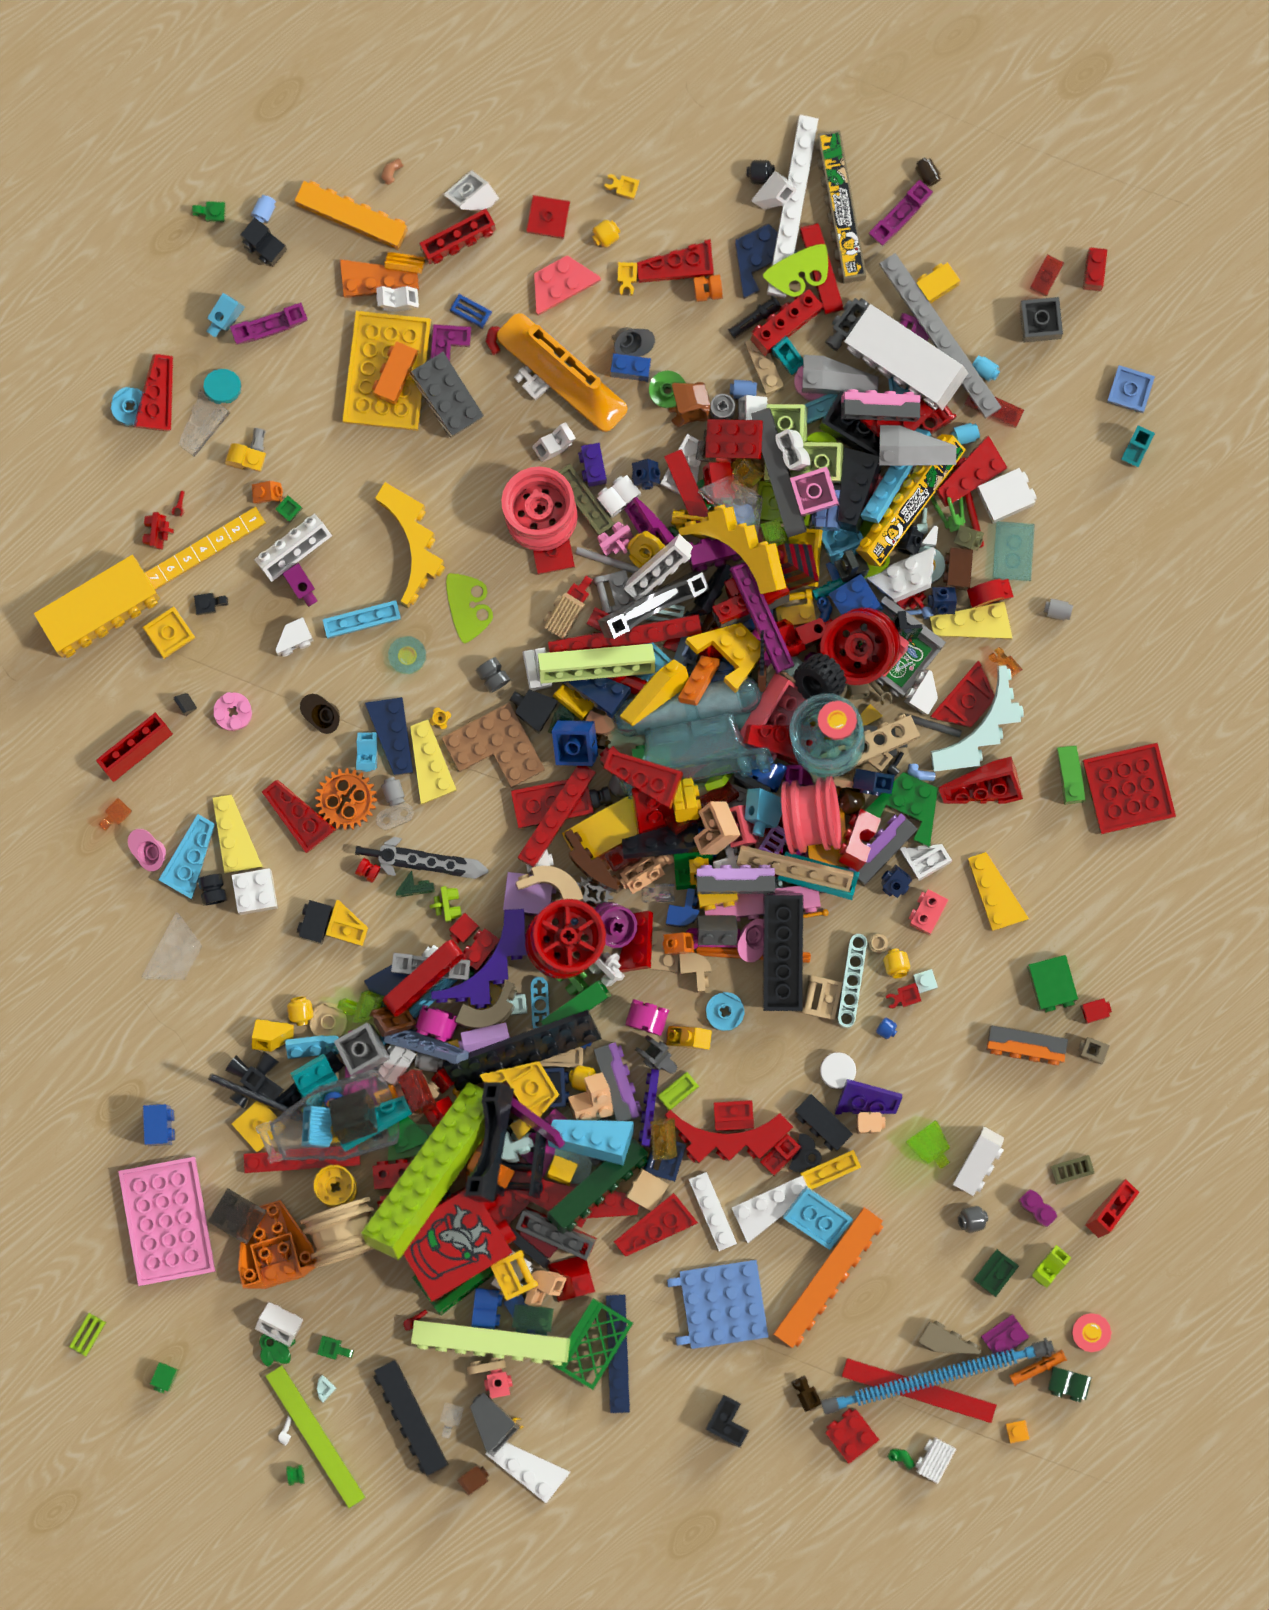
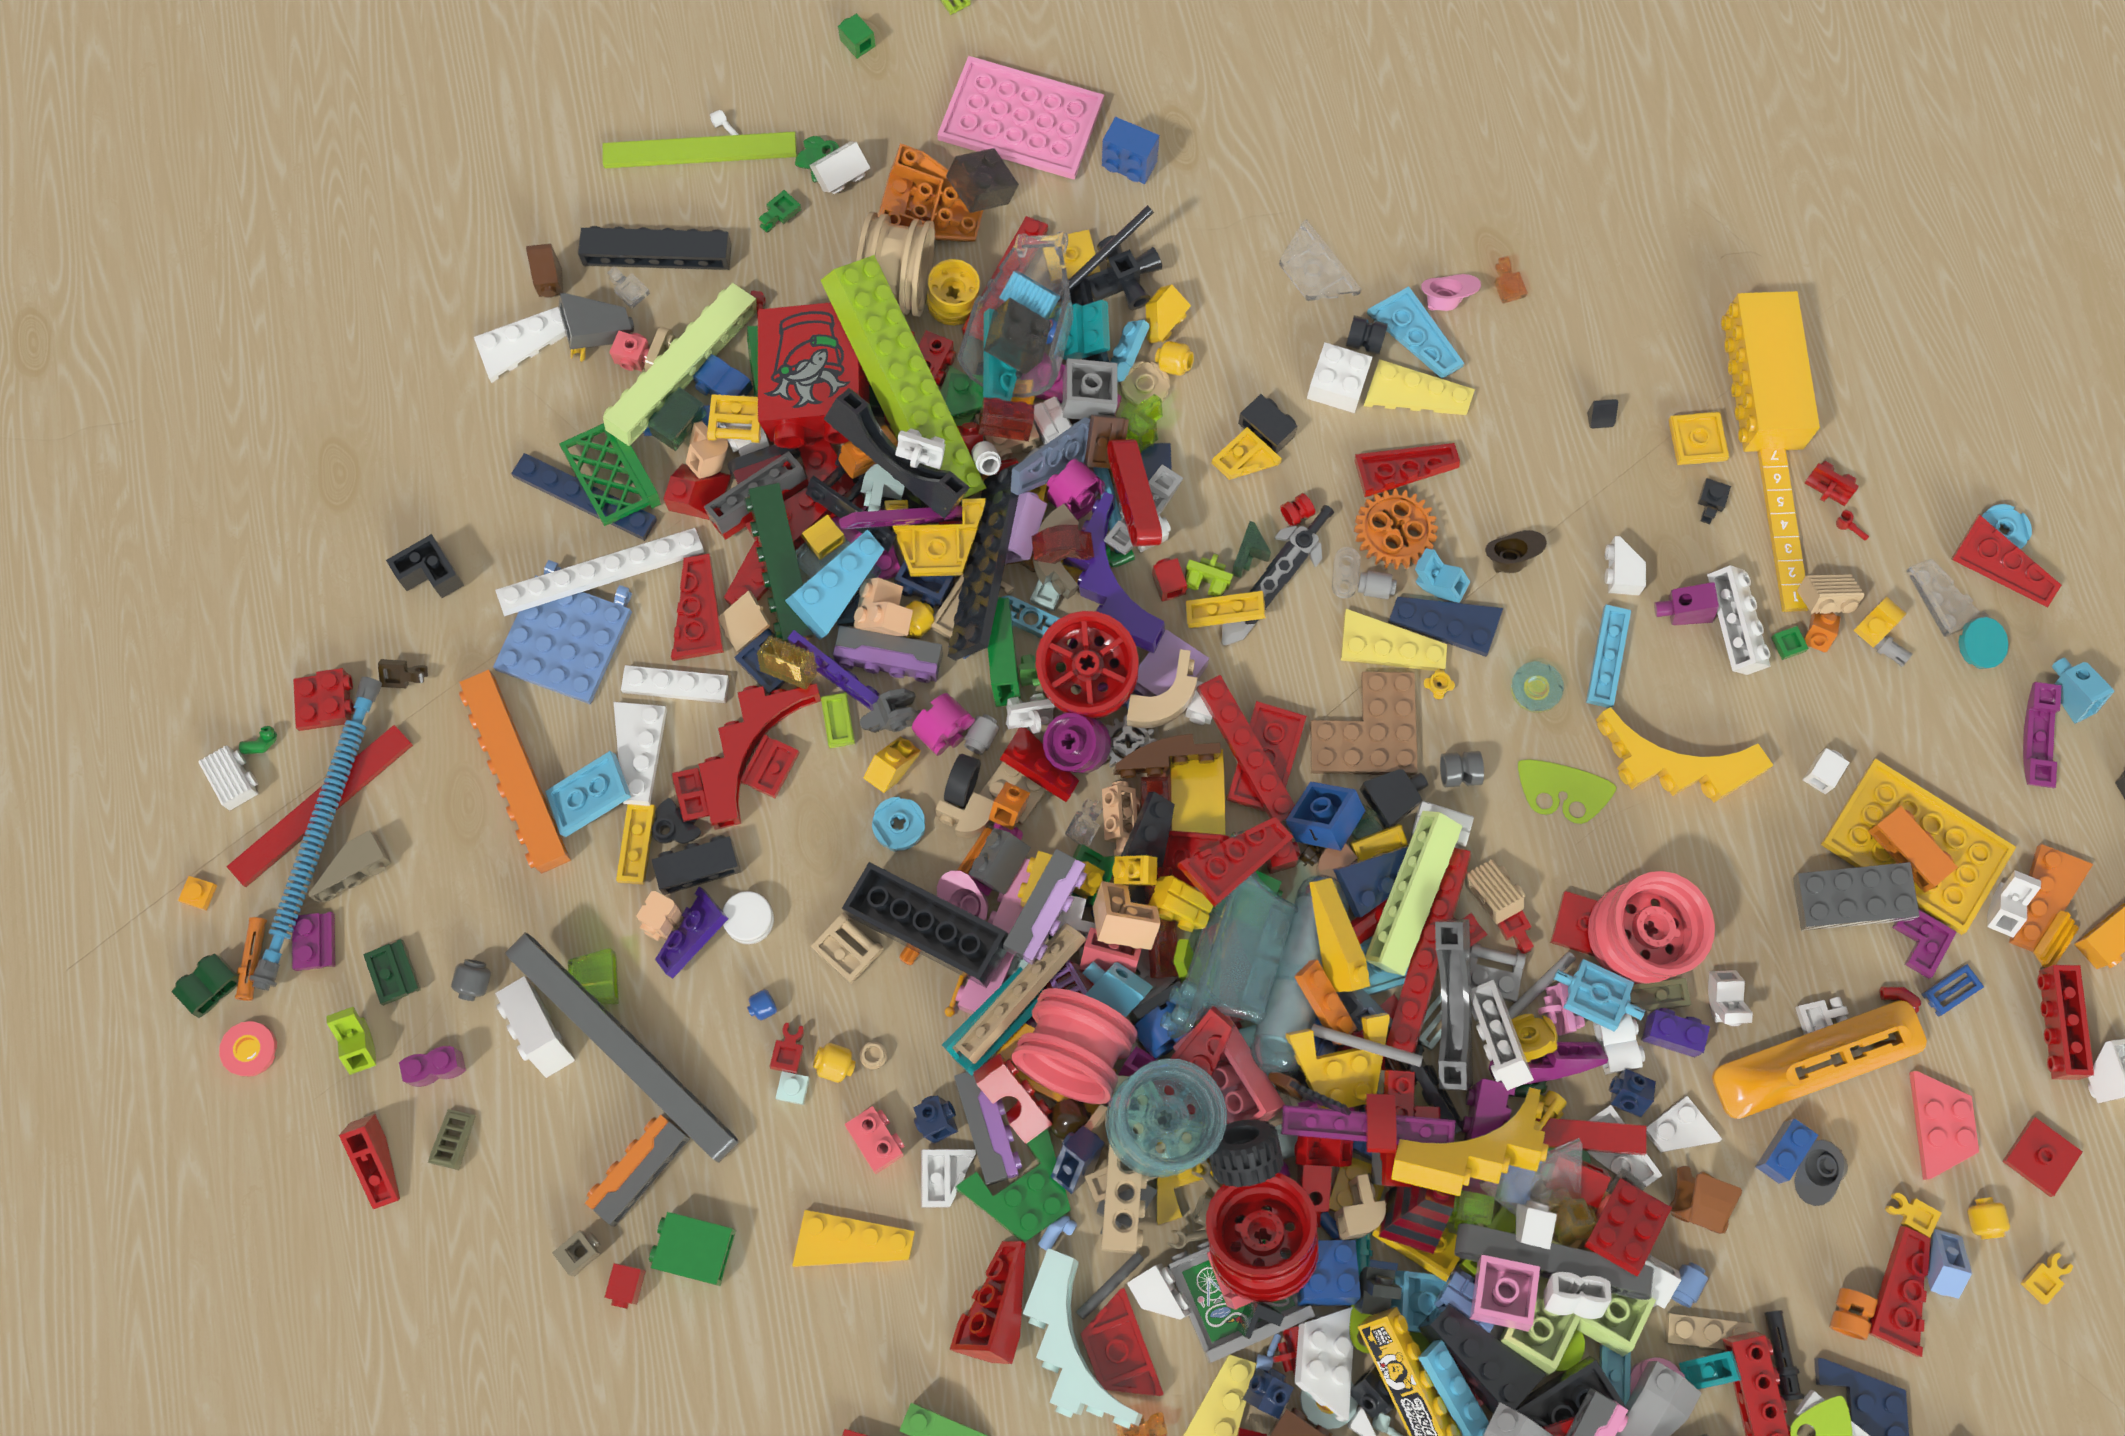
camera: 115 degrees right, 10 degrees down
(134, 747) = (1579, 333): red brick -> none
(237, 721) = (1565, 474): bright pink plate -> none
(242, 497) = (1830, 593): none -> tan brick
(295, 1475) = (671, 108): green wheel -> none
(324, 1388) = (744, 184): light aqua tile -> none
(366, 448) = (1826, 770): none -> white brick
(450, 1090) = (986, 458): none -> white brick
(466, 880) = (1225, 609): none -> yellow plate
(480, 1127) = (920, 449): none -> white hips
(481, 949) = (1132, 579): red brick -> none
(489, 1002) = (1062, 542): none -> clear red brick
(598, 521) = (1598, 995): none -> medium azure plate
(604, 794) = (1241, 815): black wheel -> none
(637, 991) = (981, 734): none -> light grey brick
(646, 246) = (1948, 1264): none -> light blue slope
(649, 435) = (1681, 1128): none -> white wing
(659, 384) = (1744, 1175): bright green dish -> none
(666, 1305) = (599, 571): none -> white plate
(676, 984) = (962, 780): none -> black tyre
(683, 835) = (1135, 870): none -> yellow slope
(683, 916) = (1043, 832): blue brick -> none
(713, 642) = (1367, 1045): none -> light grey bar
(722, 407) = (1677, 1241): light grey wheel -> none
(757, 609) = (1380, 1123): none -> red slope
(765, 493) = (1534, 1224): none -> white slope
(812, 595) = (1364, 1215): none -> tan brick
(837, 720) = (1176, 1133): coral tile -> none
(852, 971) = (835, 986): light aqua beam -> none
(893, 770) = (1081, 1198): black hand -> none
(961, 1097) = (622, 1047): none -> dark grey beam

